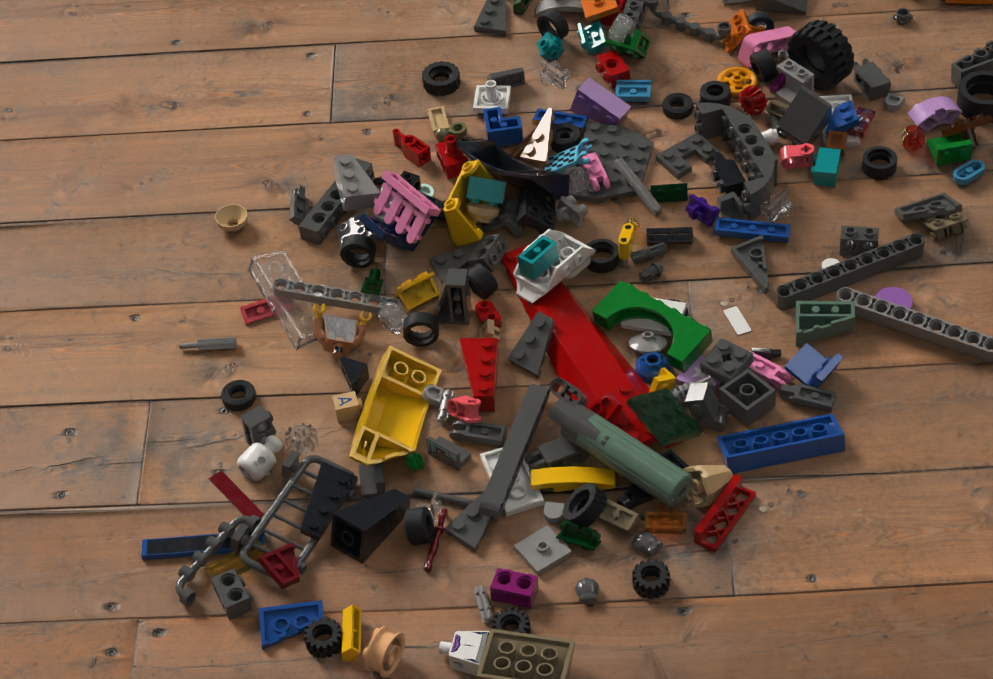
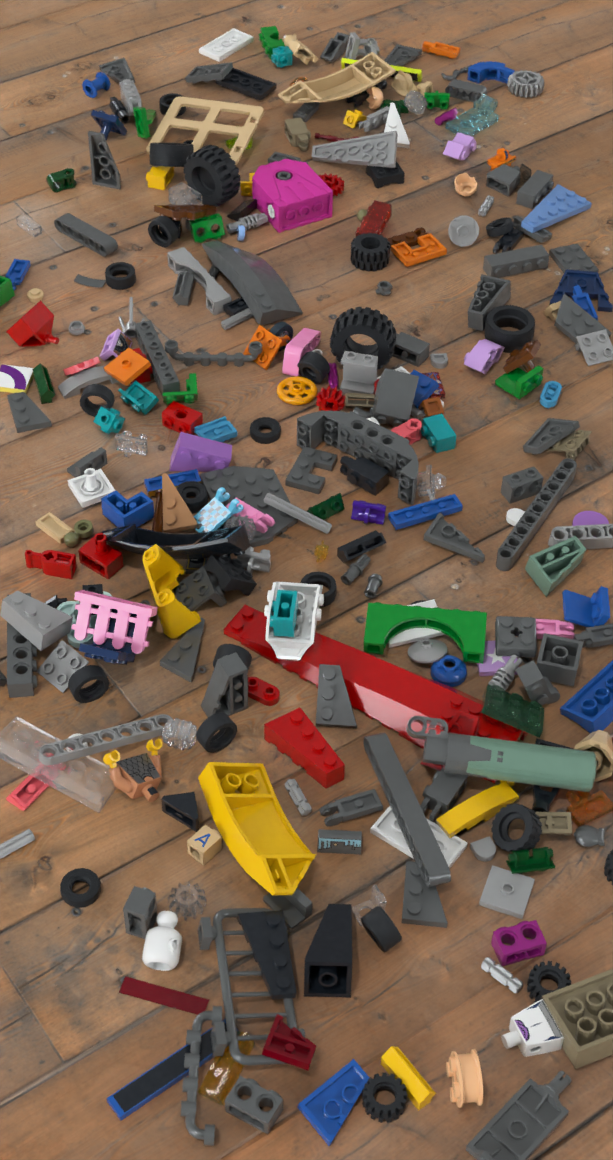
camera: 40 degrees left, 0 degrees up
(373, 283) = (127, 708): dark green hinge -> none
(415, 461) = (318, 866): green plate -> none
(417, 292) = (177, 696): yellow bracket -> none
(433, 395) = (277, 792): light grey tile -> none
(439, 529) = (405, 939): dark red piece -> none
(441, 88) = (22, 477): black tyre -> none
(442, 497) = (367, 889): dark grey bar -> none
(465, 408) = (328, 790): coral piece -> none
(482, 212) = (186, 593): tan piece -> none
(485, 190) = (174, 571): teal brick -> none
(488, 252) = (215, 630): dark grey brick -> none
(488, 330) = (277, 706): tan tile -> none
(587, 590) = (580, 909): dark grey animal -> none
(620, 28) = (171, 378): clear gear -> none
(626, 243) = (338, 567): yellow piece -> none
(664, 380) = (475, 679): yellow bracket -> none
(715, 92) = (290, 408): black tyre -> none
(730, 206) = (391, 498): dark grey panel -> none
(737, 320) = (480, 596): white sticker -> none
(767, 352) = (532, 612): black bar -> none
(880, 153) = (476, 404): black tyre -> none
(913, 138) = (485, 383): clear red head -> none

